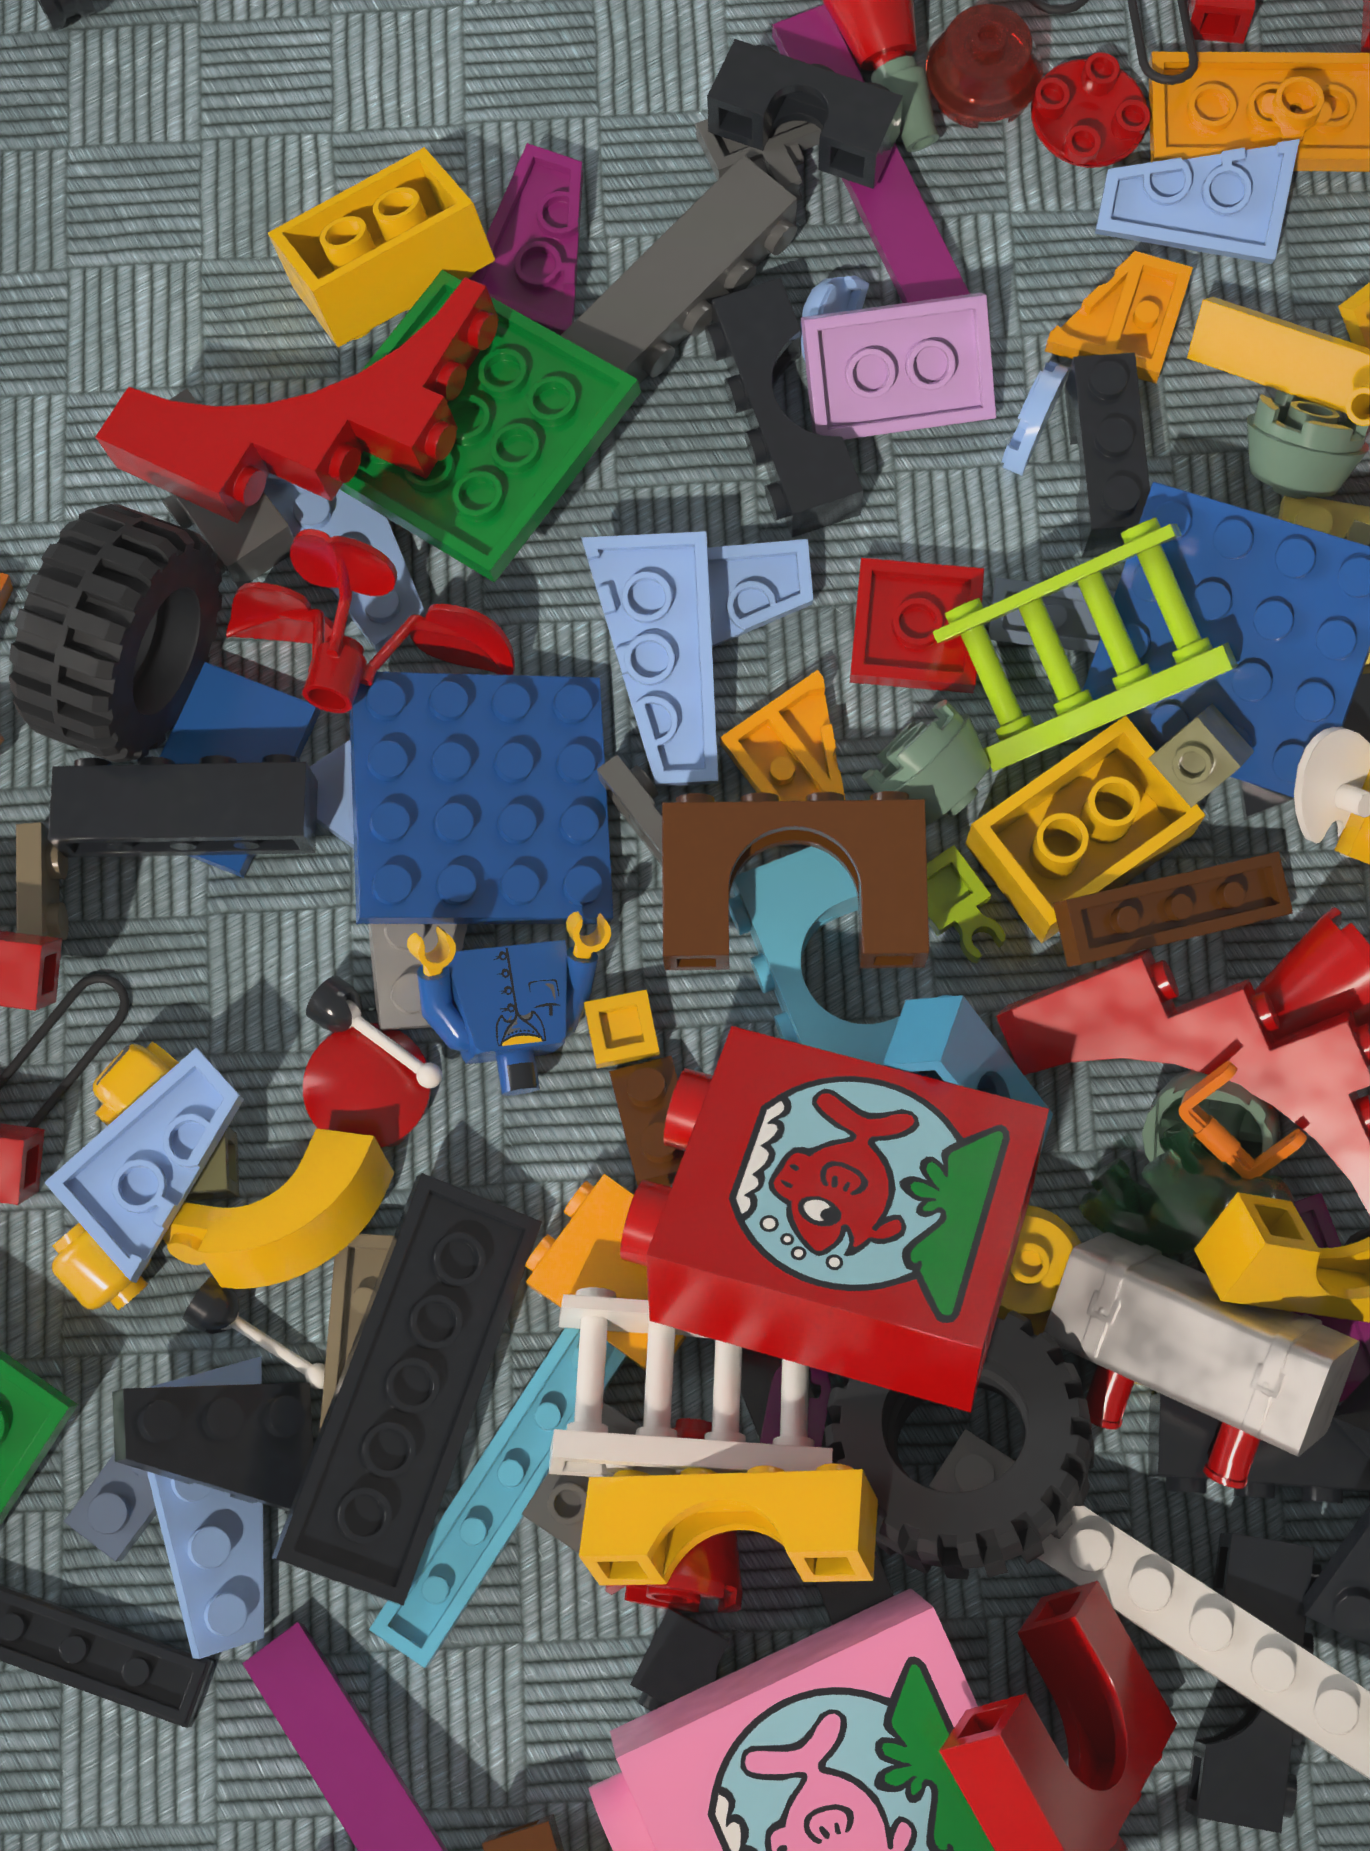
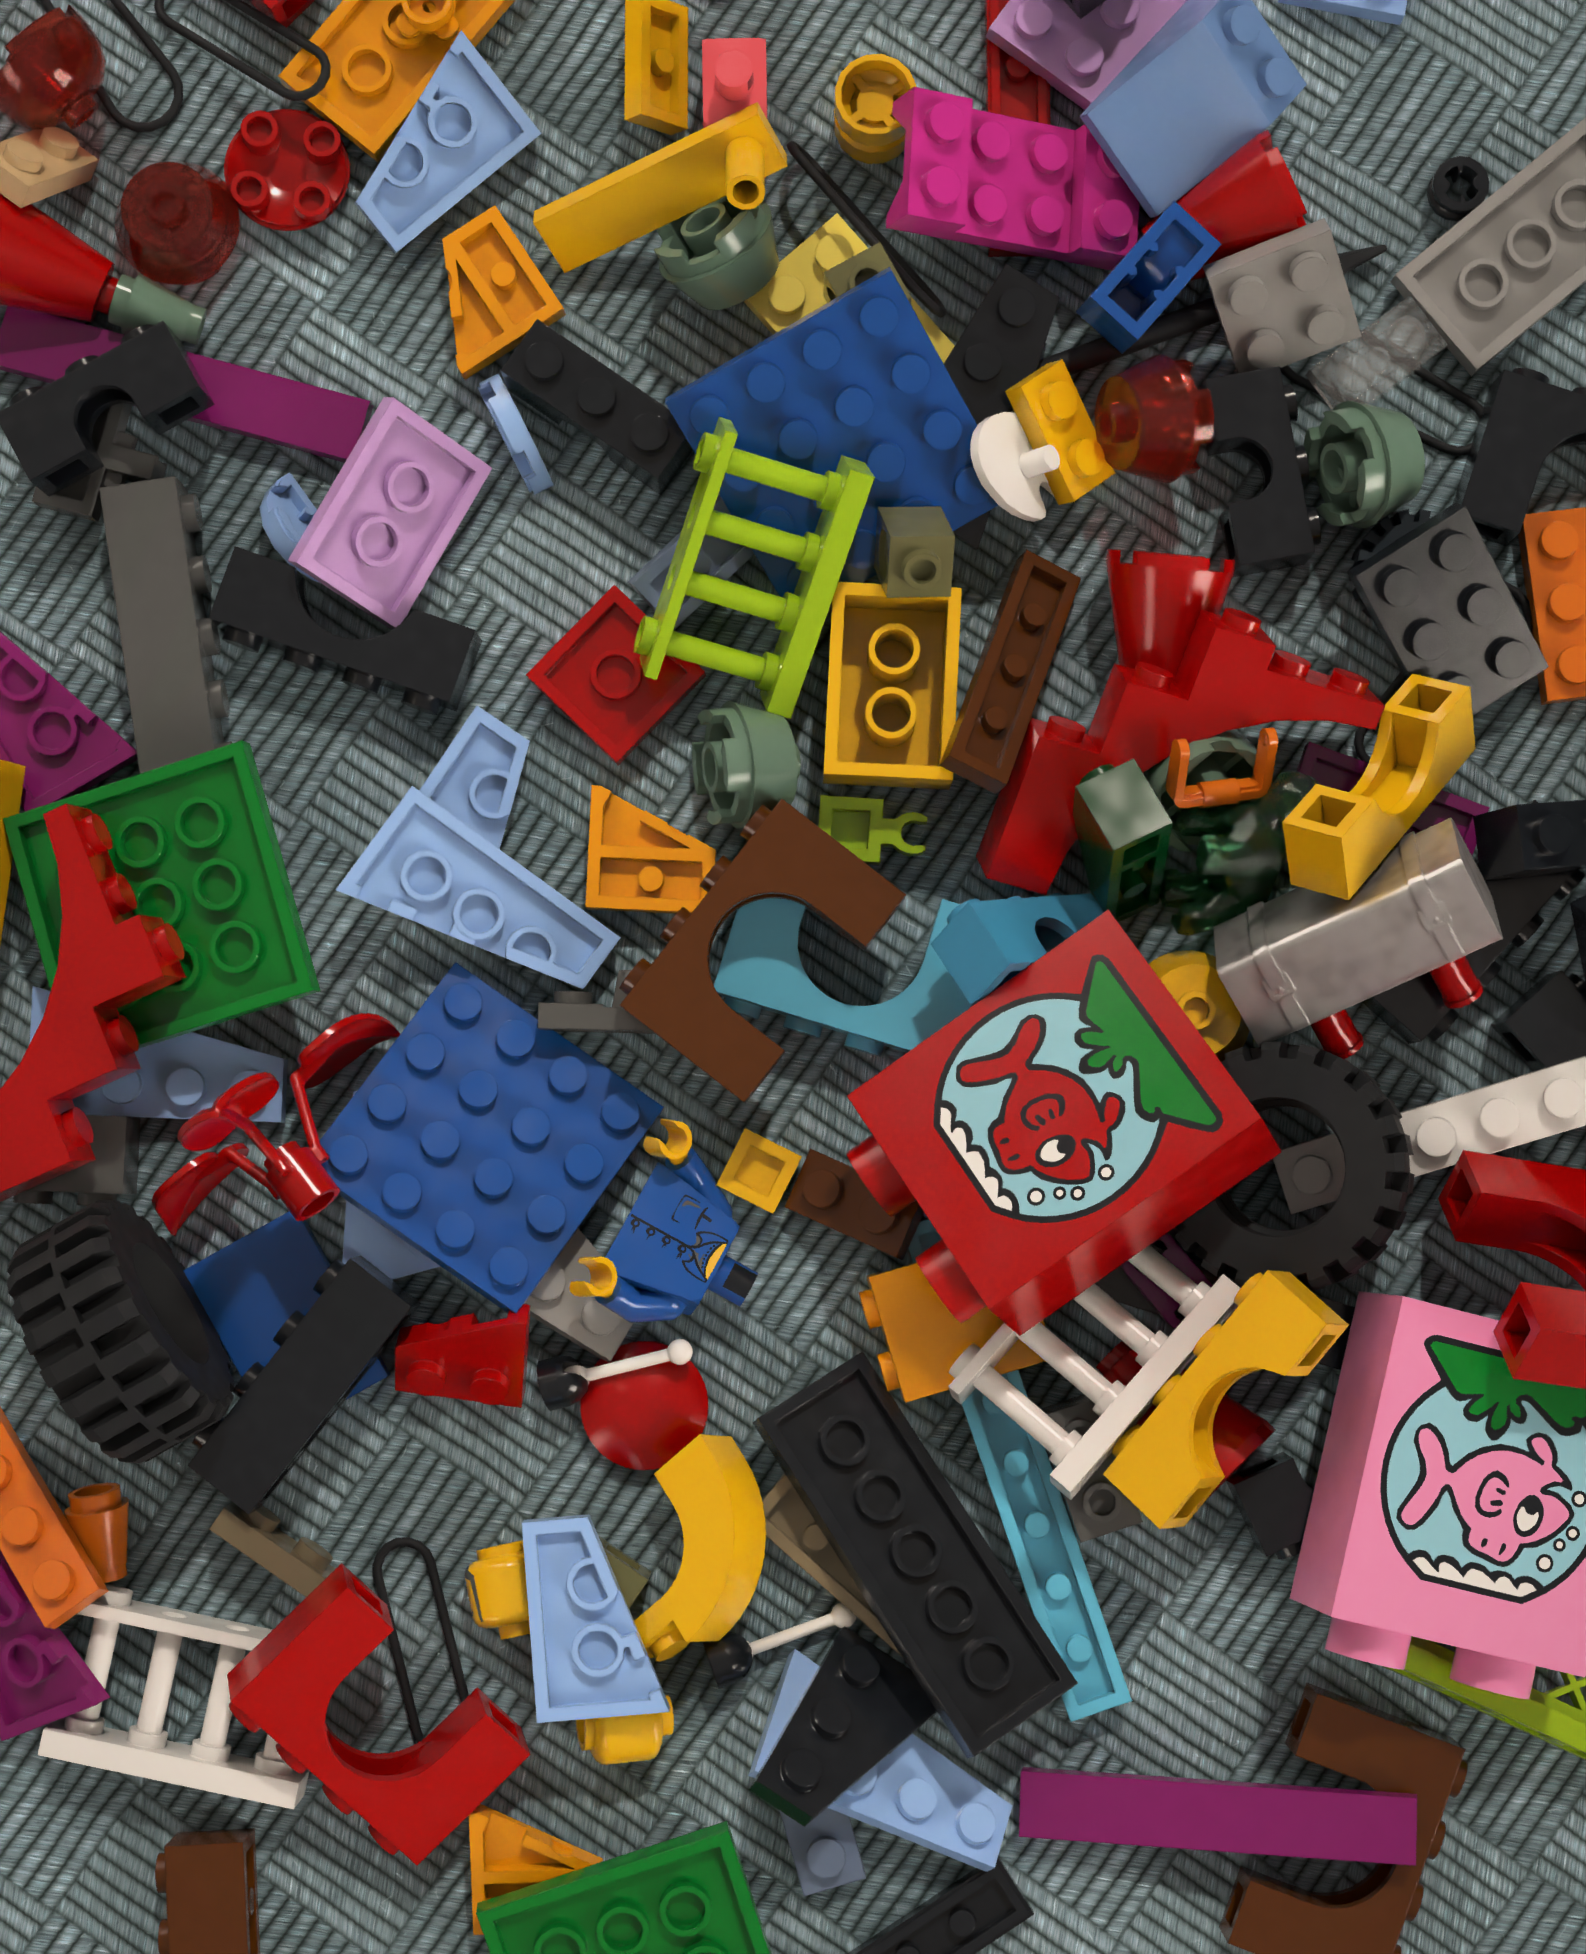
camera: 55 degrees left, 10 degrees up
(298, 919) = (466, 1359): none -> red wing
(1113, 1093) = (1121, 838): none -> dark green slope

